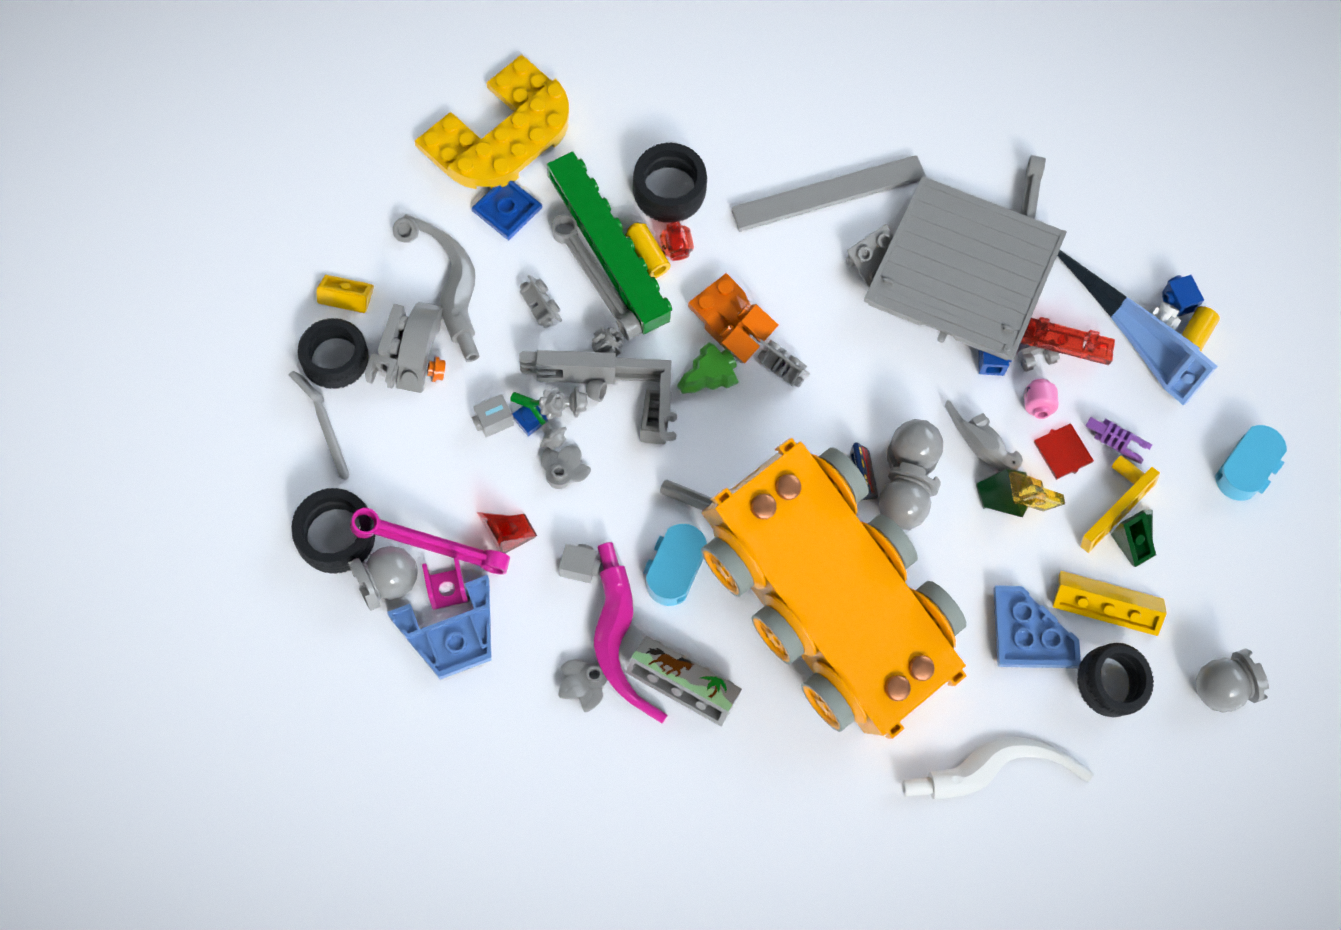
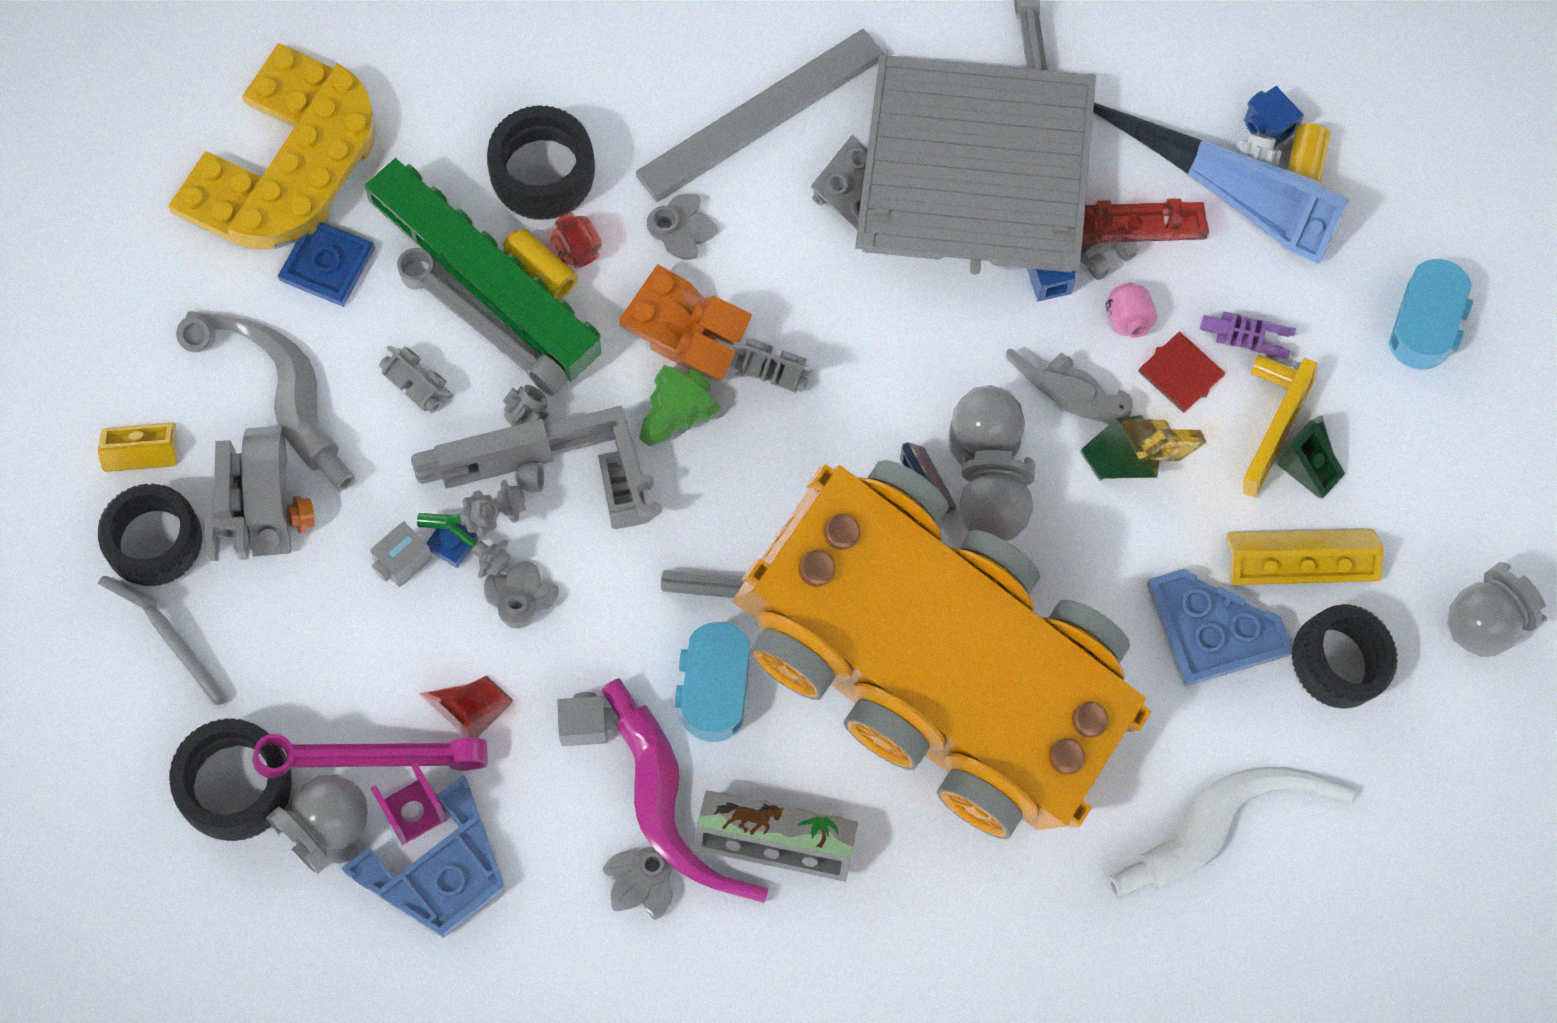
camera: 15 degrees left, 0 degrees up
(754, 252) = (686, 226): none -> light grey plate

